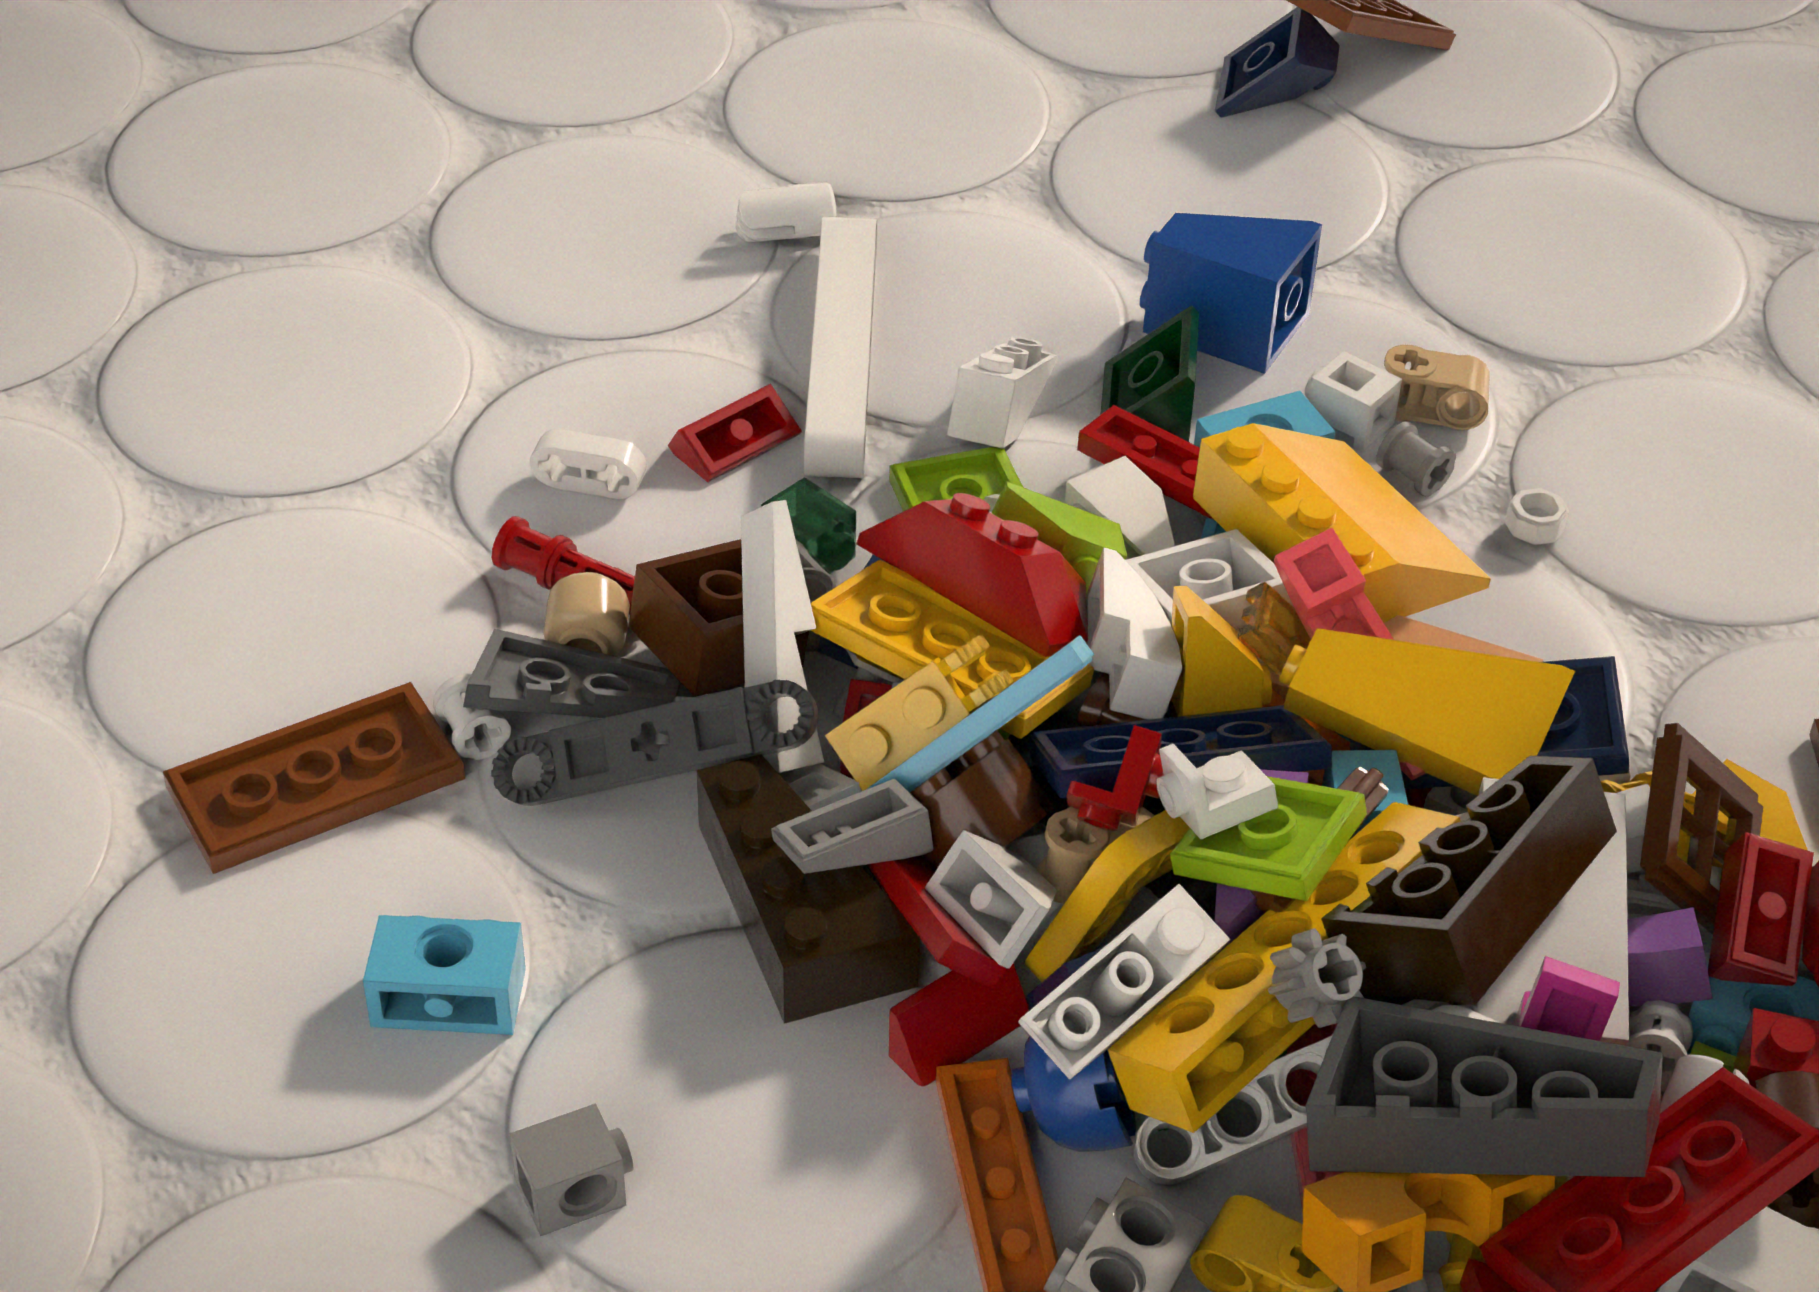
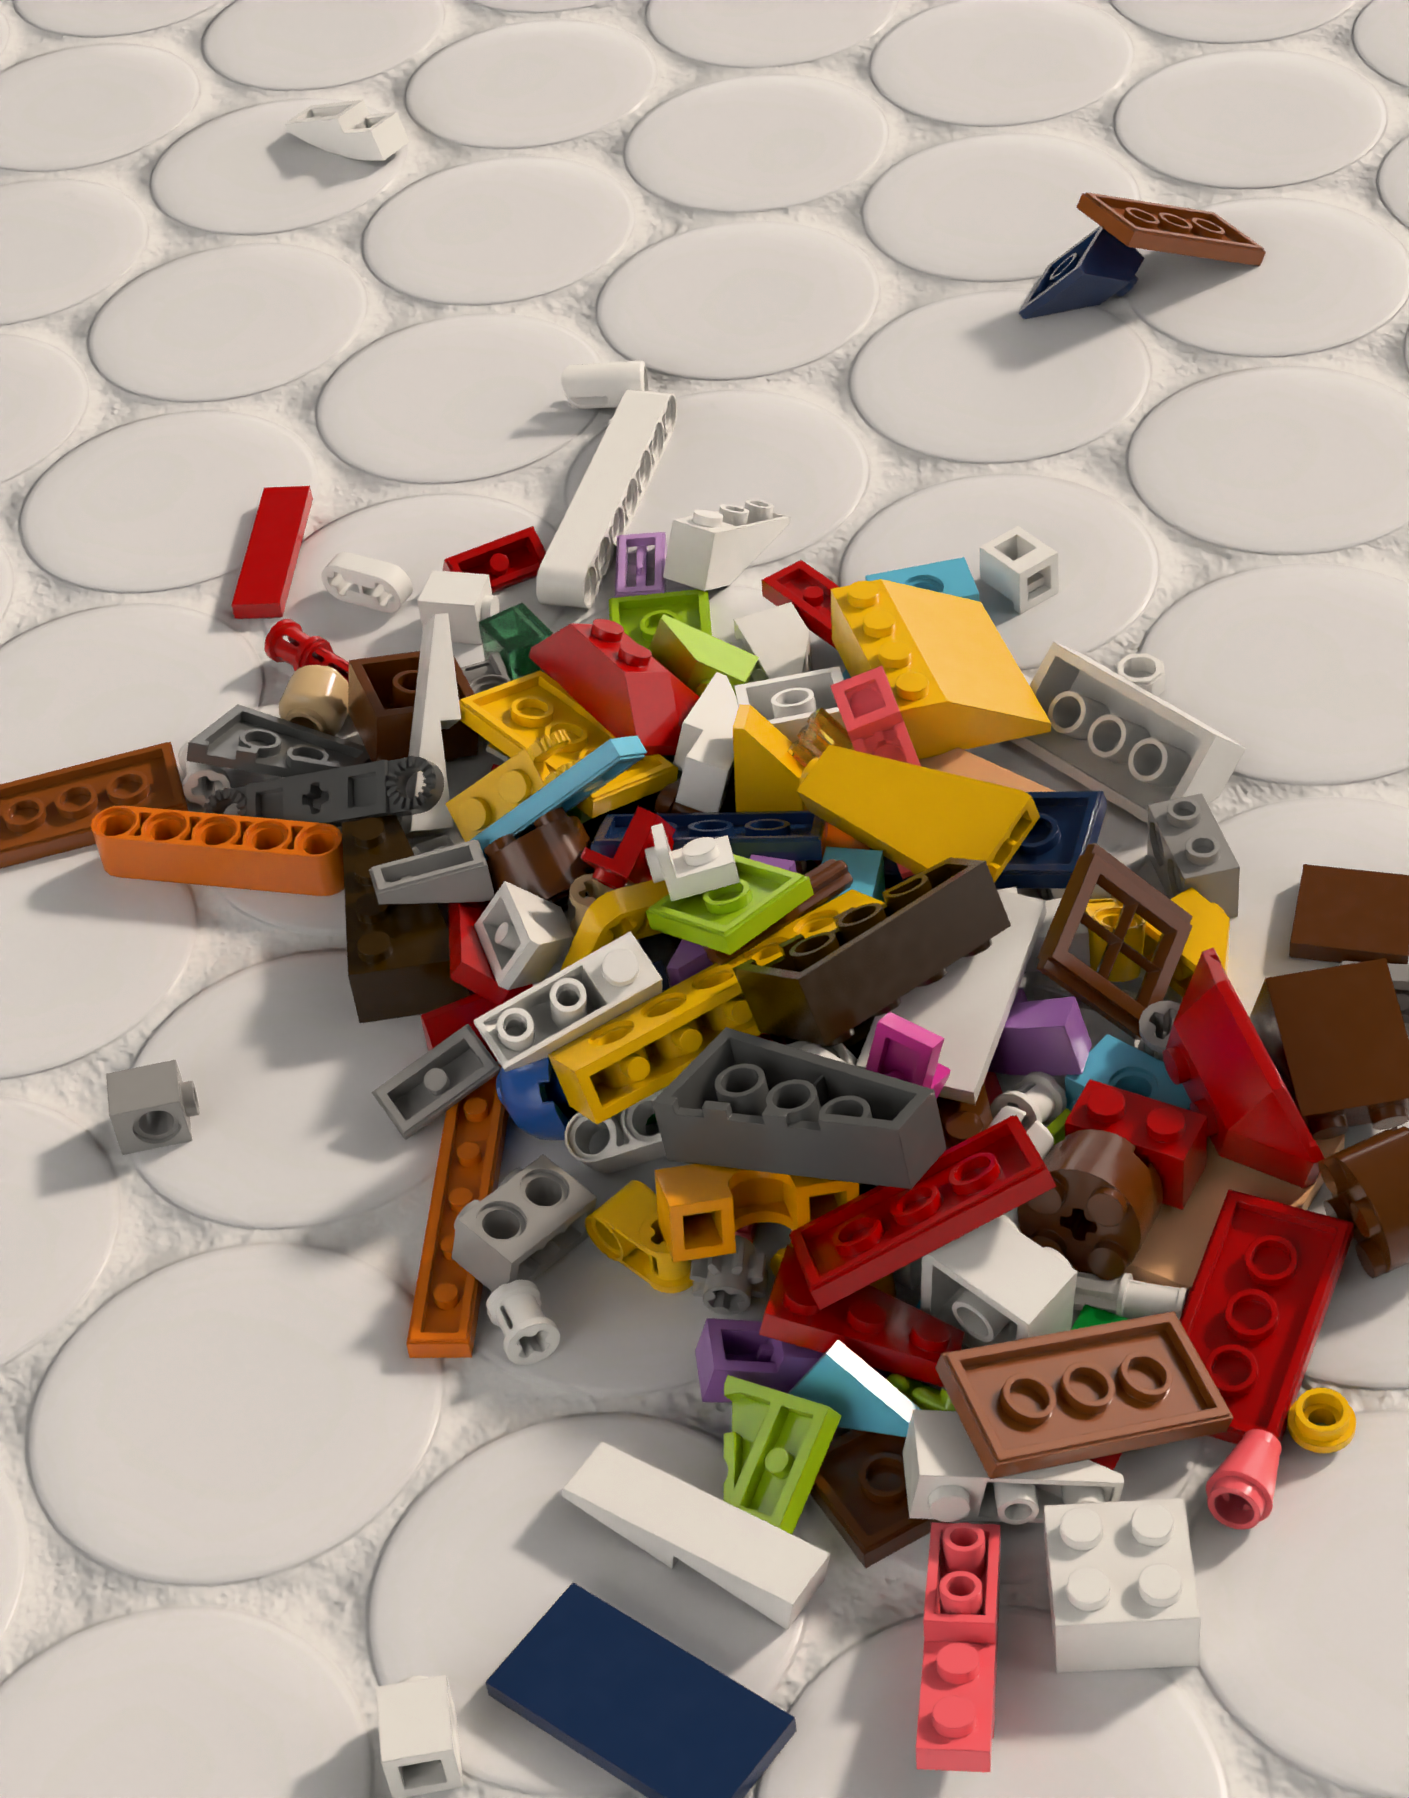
camera: 20 degrees right, 0 degrees up
(445, 974) = (113, 959): medium azure brick -> none
(449, 435) = (272, 552): none -> red tile
(533, 817) = (220, 850): none -> orange beam
(714, 487) = (464, 598): none -> white brick
(888, 433) = (641, 541): none -> lavender tile
(932, 1095) = (436, 1081): none -> light grey slope
(1157, 375) = (860, 539): dark green slope -> none
(1241, 276) = (948, 464): blue slope -> none
(1316, 977) = (718, 998): light grey gear -> none
(1415, 458) = (1048, 617): light grey bush -> none
(1436, 384) = (1099, 563): tan piece -> none
(1566, 589) = (1124, 737): none -> white slope
(1705, 704) = (1192, 852): none -> light grey brick
(1760, 912) = (1139, 1006): red slope -> none

